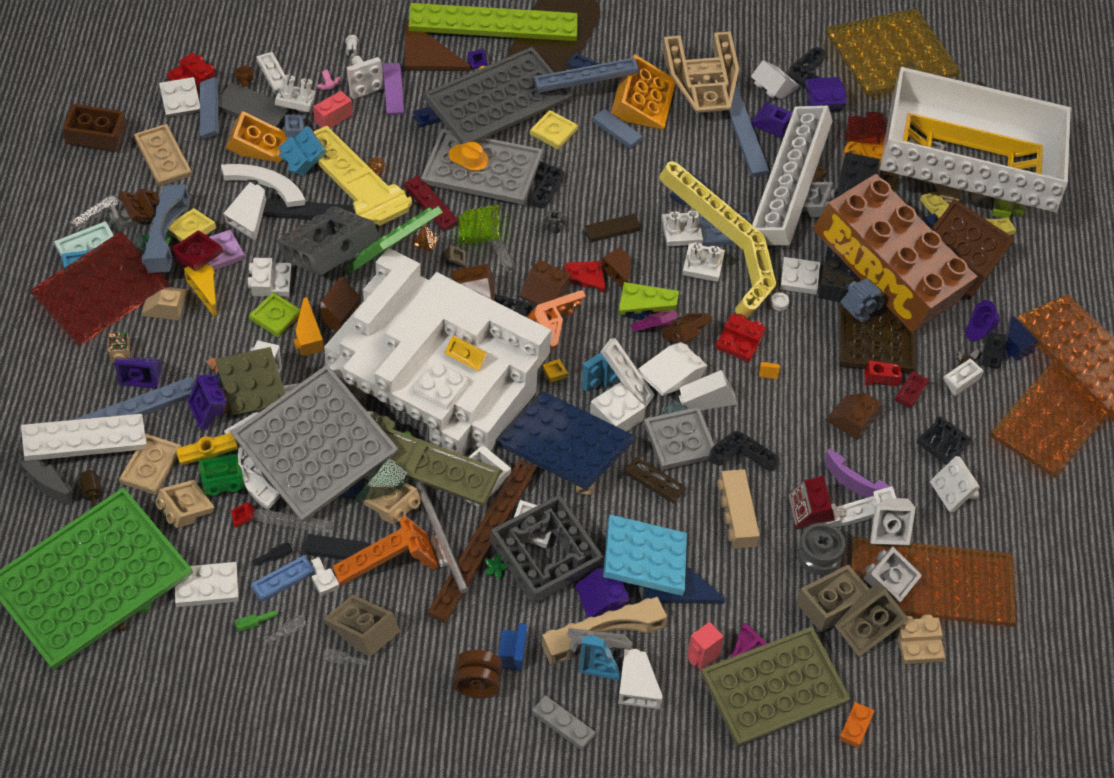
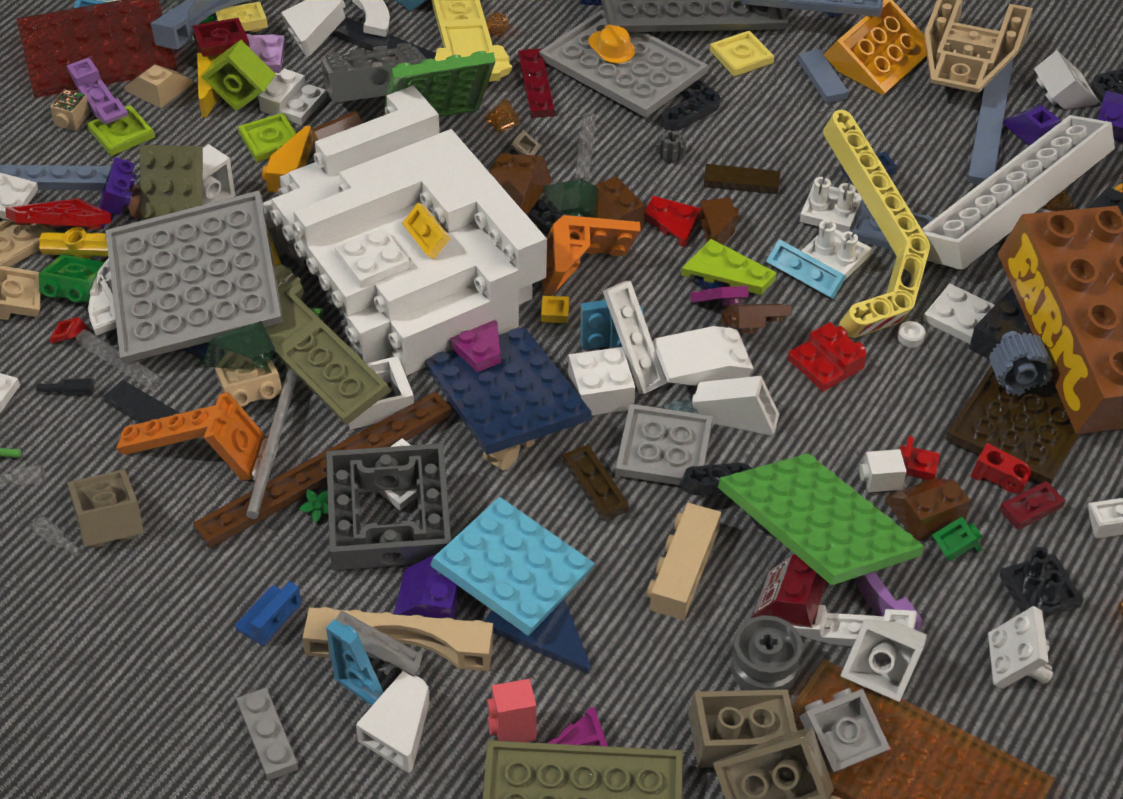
camera: 30 degrees right, 5 degrees down
(138, 333) = (99, 98): none -> medium lavender slope
(138, 372) = (68, 139): dark purple slope -> none
(166, 347) = (121, 133): none -> lime tile
(181, 429) = (59, 214): none -> red plate
(232, 277) = (238, 75): none -> lime brick
(282, 578) = (58, 419): medium blue tile -> none
(324, 579) = (105, 438): white plate -> none
(477, 674) = (191, 620): reddish brown wheel -> none
(478, 223) = (572, 120): clear neon green plate -> none
(519, 286) = (573, 197): none -> clear green slope
(529, 417) = (479, 346): none -> magenta wing
(693, 280) = (806, 269): none -> medium azure plate
(769, 370) = (842, 409): light orange slope -> none
(804, 449) = (820, 518): none -> bright green plate
(819, 402) = (883, 470): none -> white brick
(832, 387) = (919, 462): none -> red bracket
(883, 429) = (958, 538): none -> green bracket

